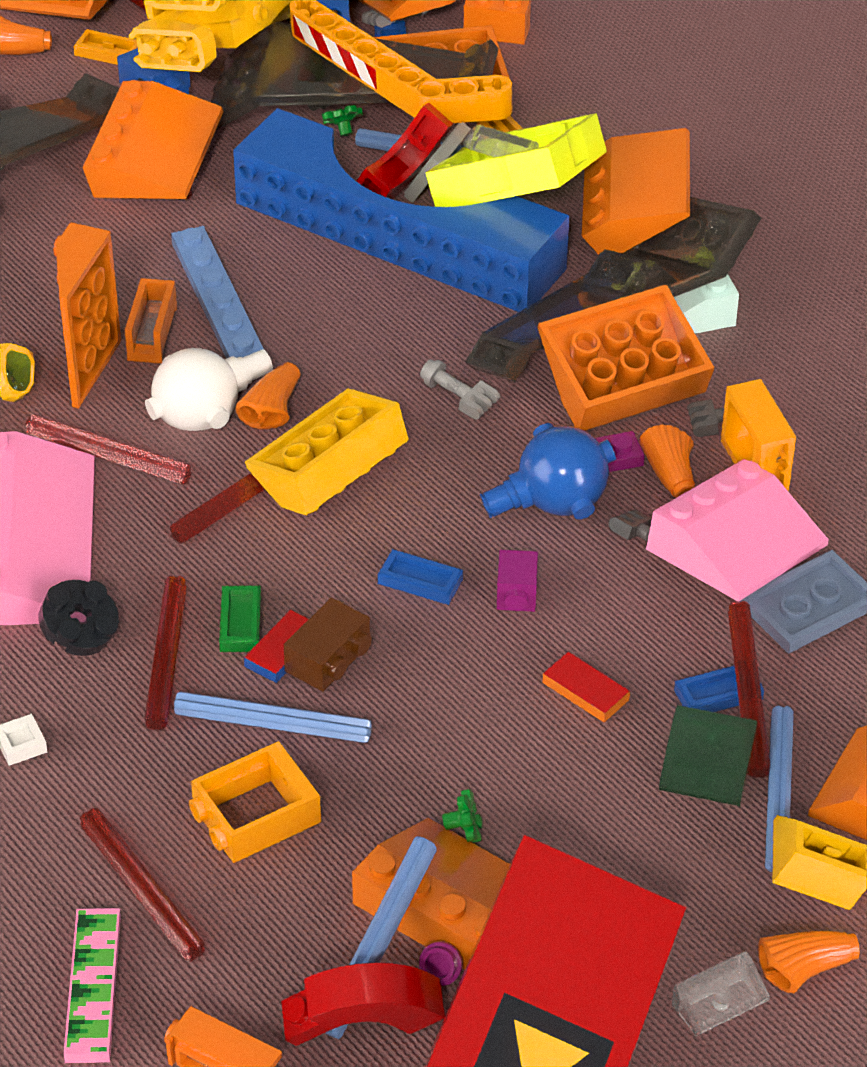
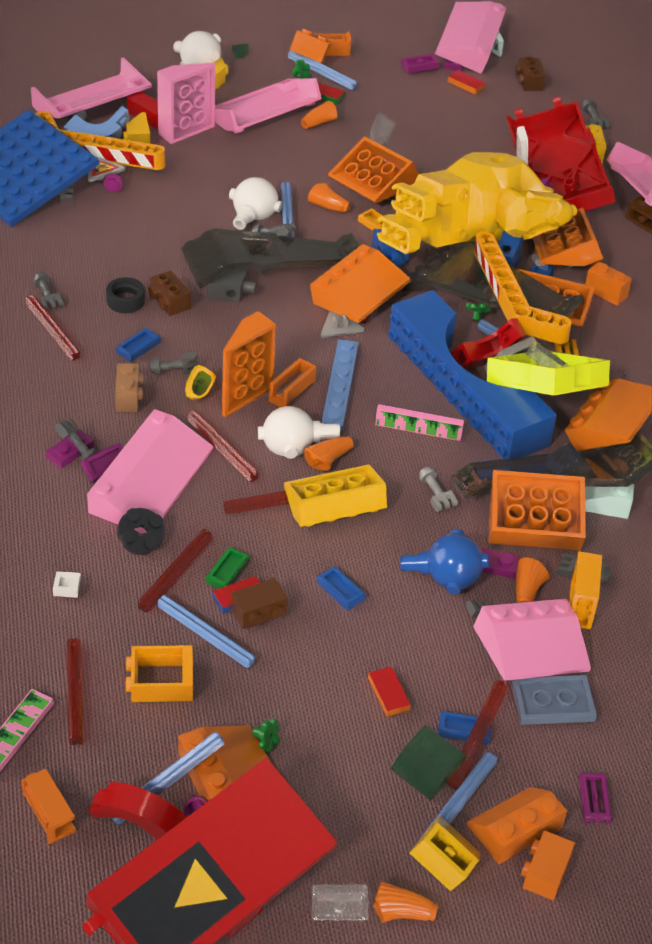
camera: 25 degrees right, 0 degrees up
(157, 214) = (339, 325): none -> light grey piece
(371, 304) = (419, 422): none -> tile
(517, 580) = (390, 613): magenta brick -> none

